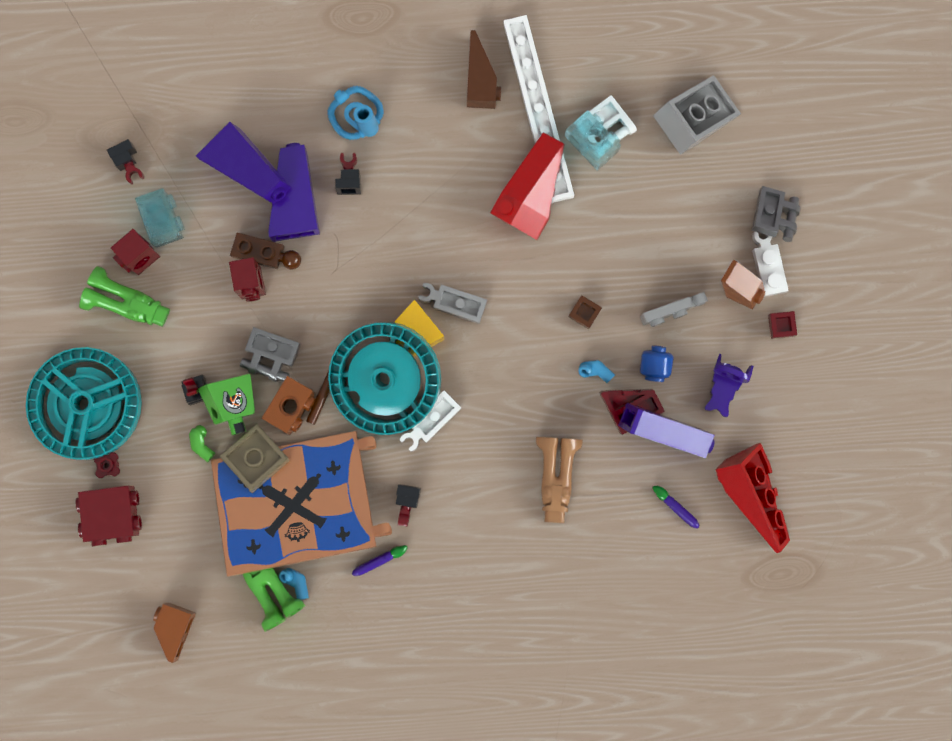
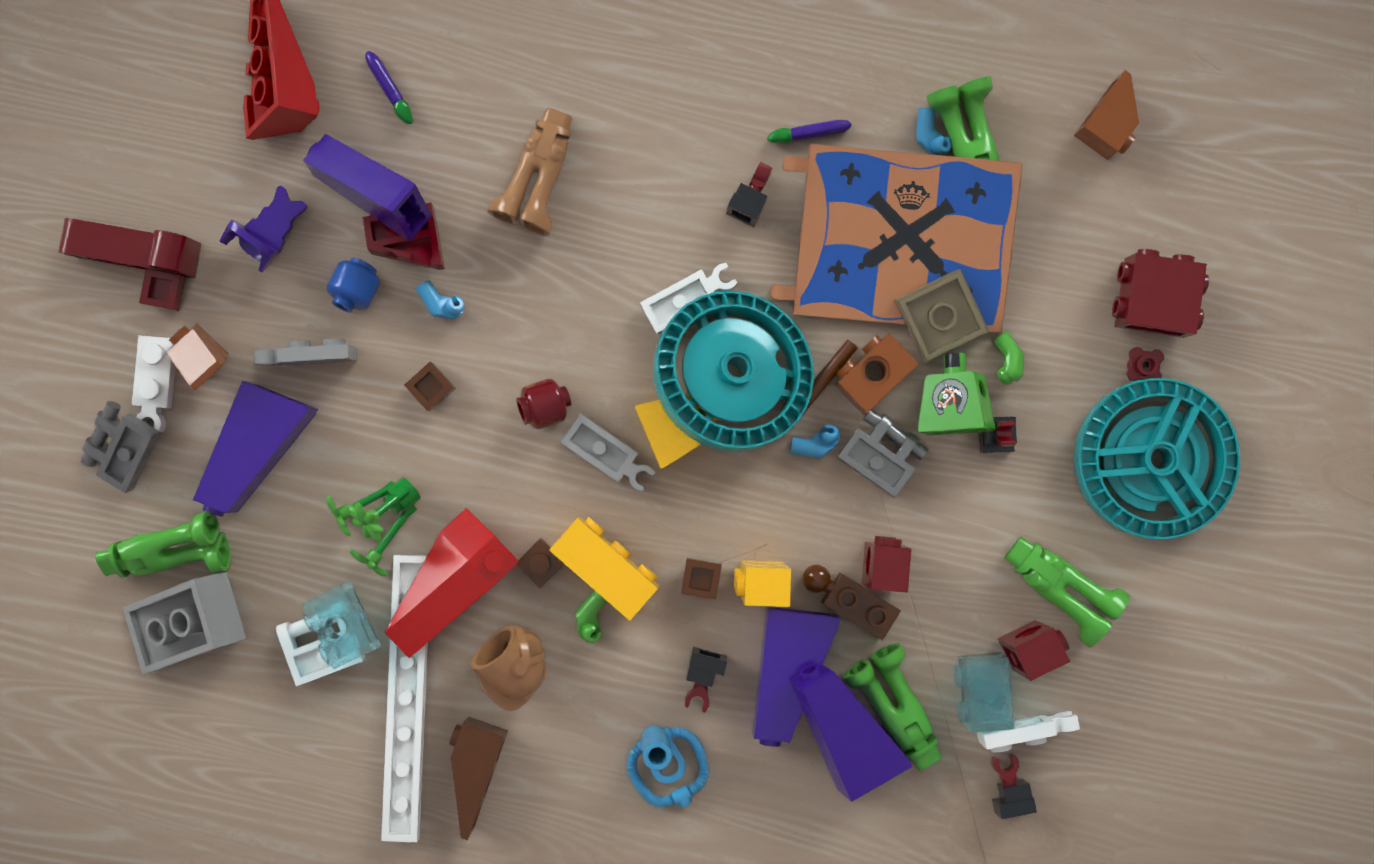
camera: 160 degrees left, 5 degrees up
(123, 201) = (1029, 730): none -> white plate
(206, 184) = (908, 721): none -> bright green piece
(314, 348) = (818, 445): none -> dark azure arm
(325, 242) = (763, 583): none -> yellow brick
(368, 238) = (701, 578): none -> reddish brown plate
(433, 227) = (605, 566): none -> yellow brick
(435, 192) = (587, 618): none -> bright green arm
(476, 146) = (510, 666): none -> medium nougat helmet
(477, 219) = (539, 563): none -> reddish brown plate
(505, 322) = (543, 403): none -> dark red head
(582, 234) = (399, 497): none -> plant
(690, 243) = (249, 446): none -> dark purple slope
(721, 158) = (150, 552): none -> bright green piece
(811, 346) = (130, 247): none -> dark red beam

